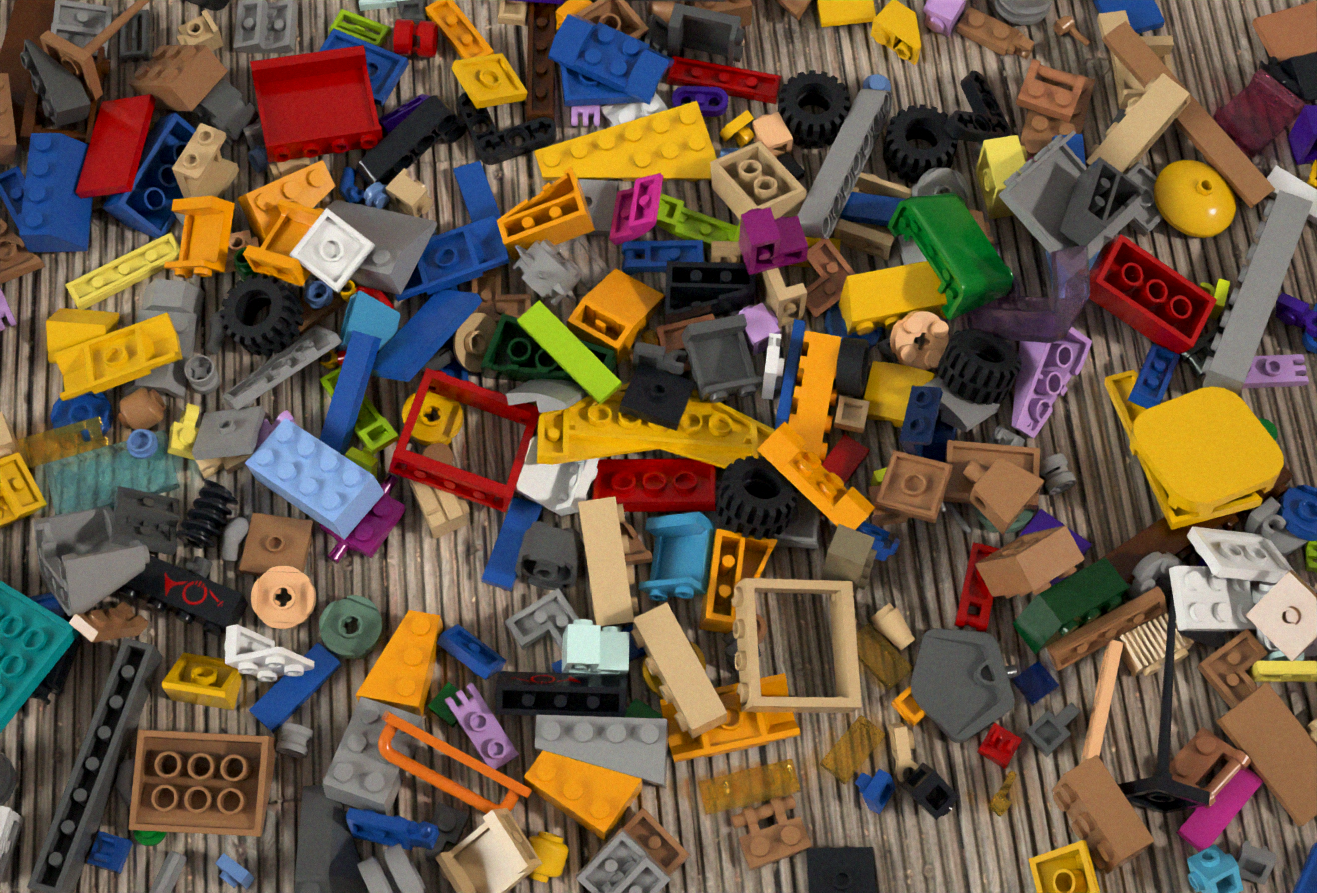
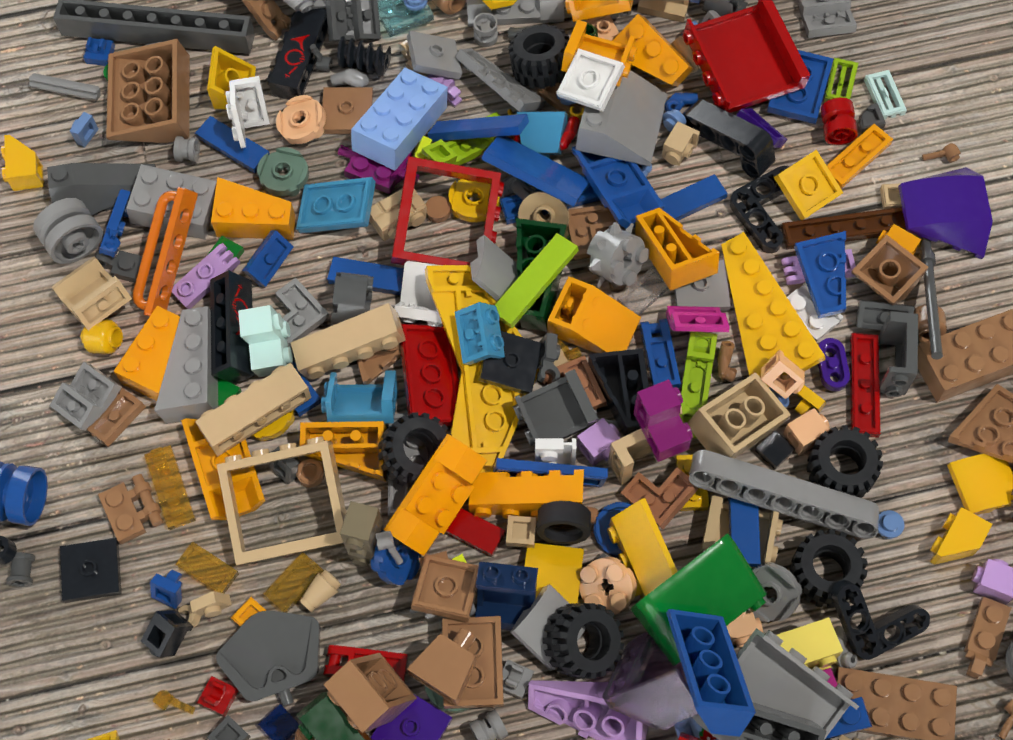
camera: 85 degrees right, 0 degrees up
(183, 434) = (431, 26): light yellow plate -> none
(416, 565) = (336, 205): none -> dark azure tile
(609, 57) = (851, 271): blue piece -> none
(629, 414) = (479, 333): none -> dark azure bracket
(692, 200) = (724, 360): none -> medium nougat arm
(715, 140) = (783, 384): none -> light nougat brick
(869, 529) = (385, 541): none -> light grey hand
(1045, 230) = (712, 671): none -> blue slope
(1049, 98) = (911, 694): nougat plate -> none

